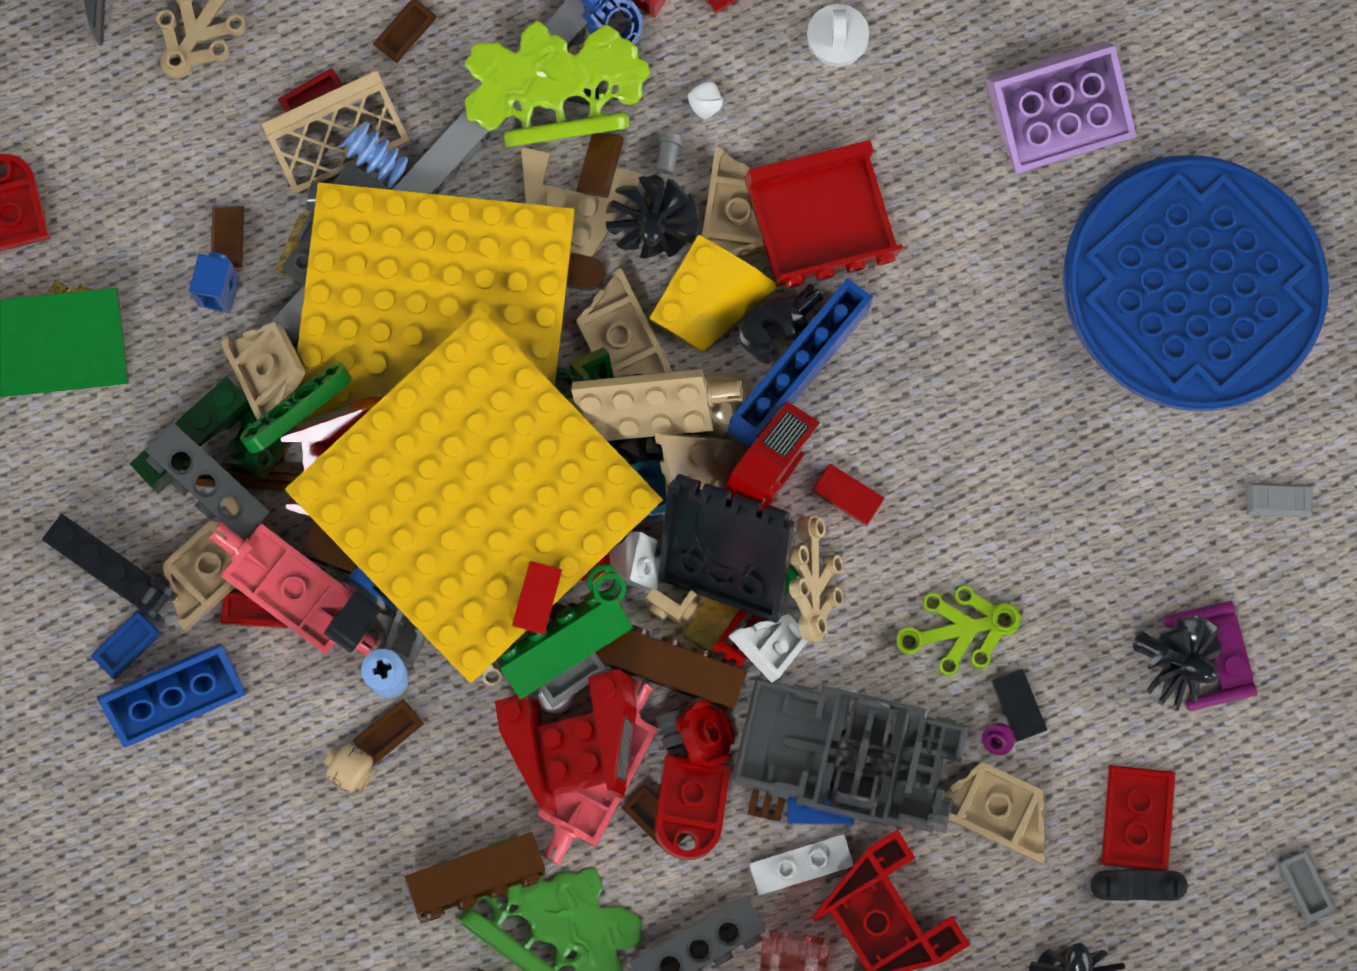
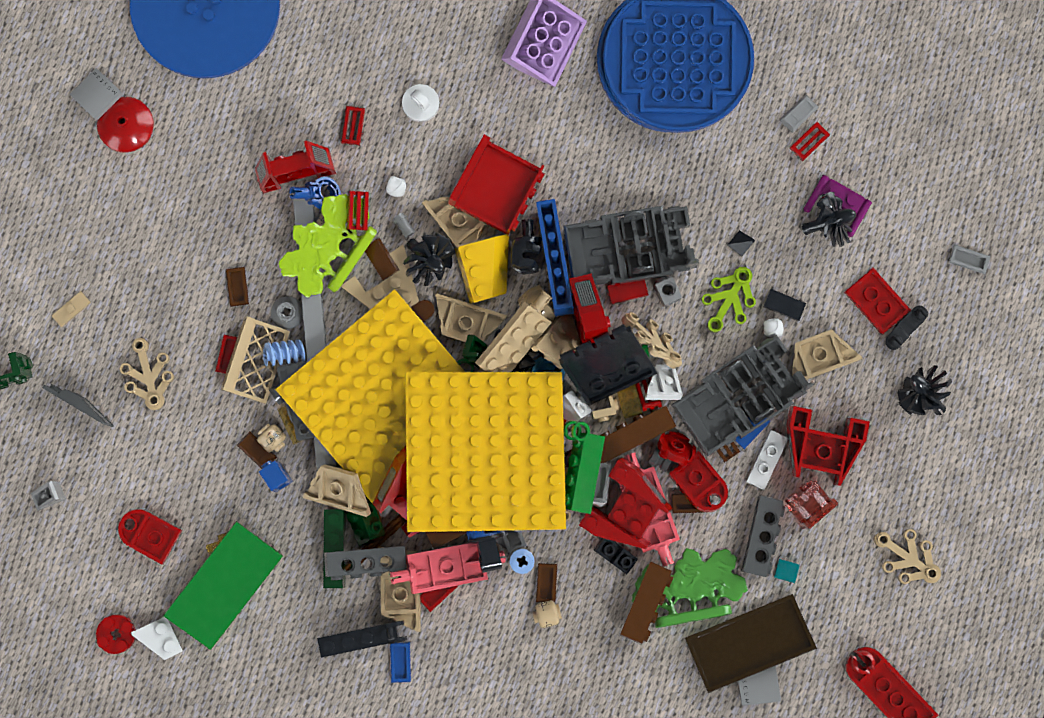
camera: 50 degrees left, 5 degrees up
(172, 695) = (443, 662): blue slope -> none
(257, 237) = (271, 438): none -> tan head
(295, 407) = (370, 492): green beam -> none
(428, 131) = (295, 316): none -> light grey piece
(503, 786) = (616, 555): none -> black slope
(536, 597) = (556, 466): red tile -> none
(651, 61) = (358, 210): none -> red tile
(859, 406) = (595, 249): none -> dark grey piece
(893, 557) = (667, 299): none -> light grey brick
(976, 716) = (773, 327): none -> white piece
(1002, 732) = (791, 322): magenta plate -> none
(1044, 579) = (741, 243): none -> black slope
(1257, 558) = (798, 152): none -> red tile

